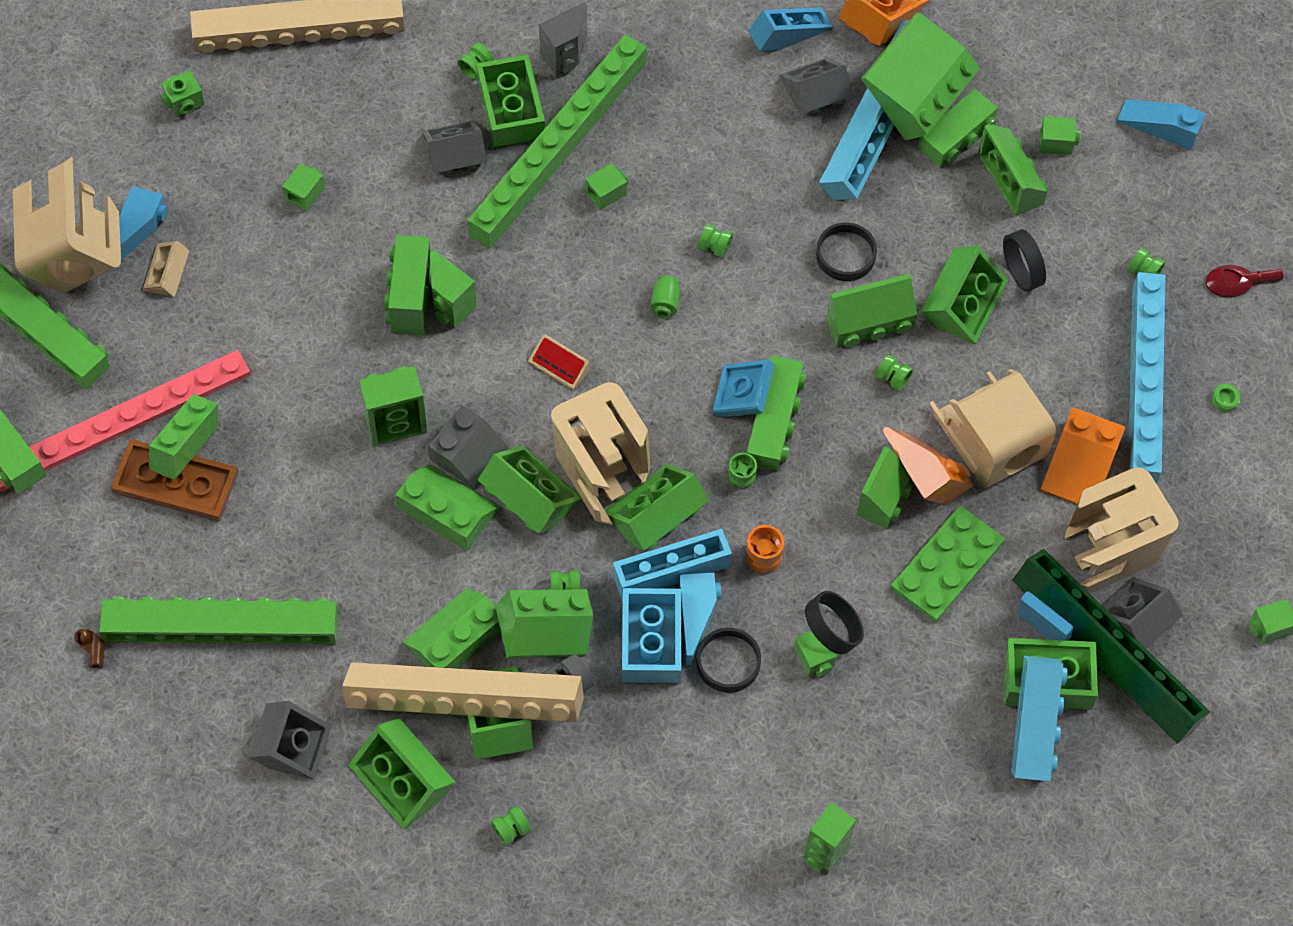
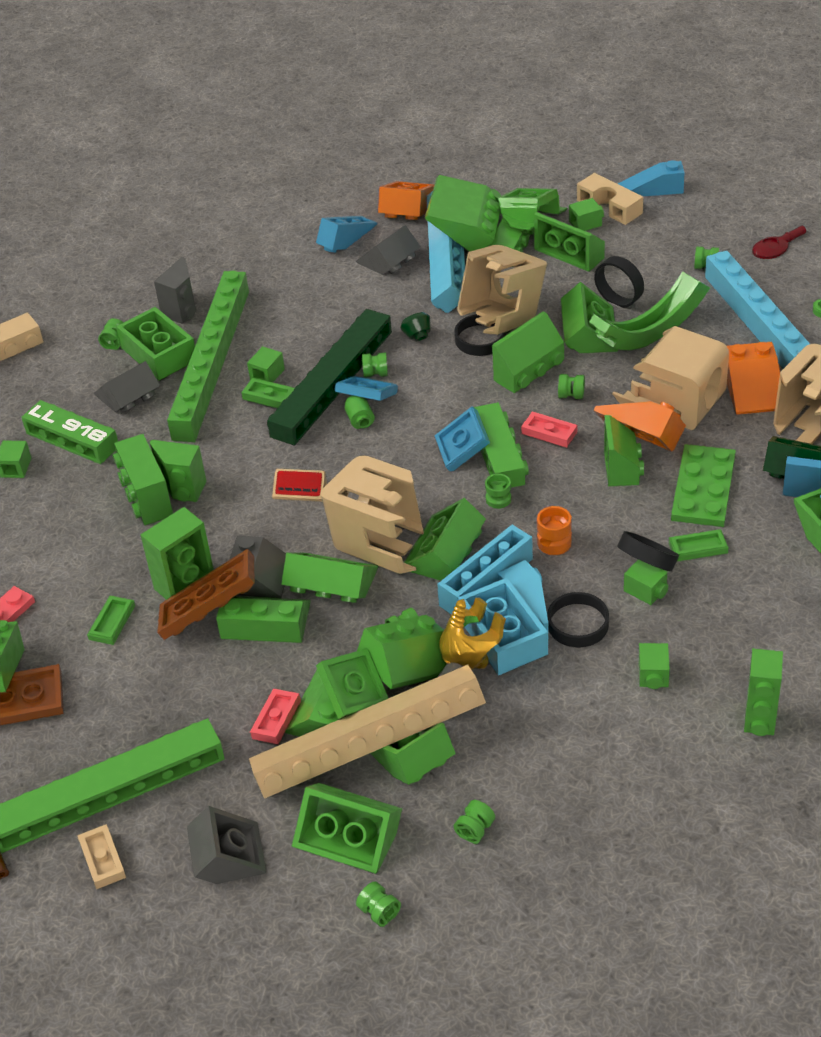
camera: 20 degrees left, 20 degrees down
(184, 692) = (101, 856): none -> tan plate
(308, 435) = (111, 620): none -> bright green tile
(373, 177) = (70, 431): none -> bright green brick
(387, 862) = (377, 903): none -> bright green wheel
(399, 463) = (206, 594): none -> dark orange plate
(400, 624) = (275, 716): none -> coral plate
(473, 638) = (351, 682): none -> bright green plate
(590, 224) = (266, 392): none -> bright green plate
(597, 648) = (469, 650): none -> pearl gold piece
(662, 233) = (317, 389): none -> dark green brick
(687, 271) = (366, 388): none -> dark azure tile
(763, 749) = (653, 665): none -> bright green brick
(785, 209) = (416, 326): none -> dark green cone
(839, 416) = (549, 429): none -> coral plate
(884, 192) = (484, 294): none -> tan piece
(895, 633) = (699, 545): none -> bright green tile
(992, 94) = (522, 203): none -> bright green piece
(1030, 330) = (649, 327): none -> bright green arch
(1095, 104) = (623, 203): none -> tan arch

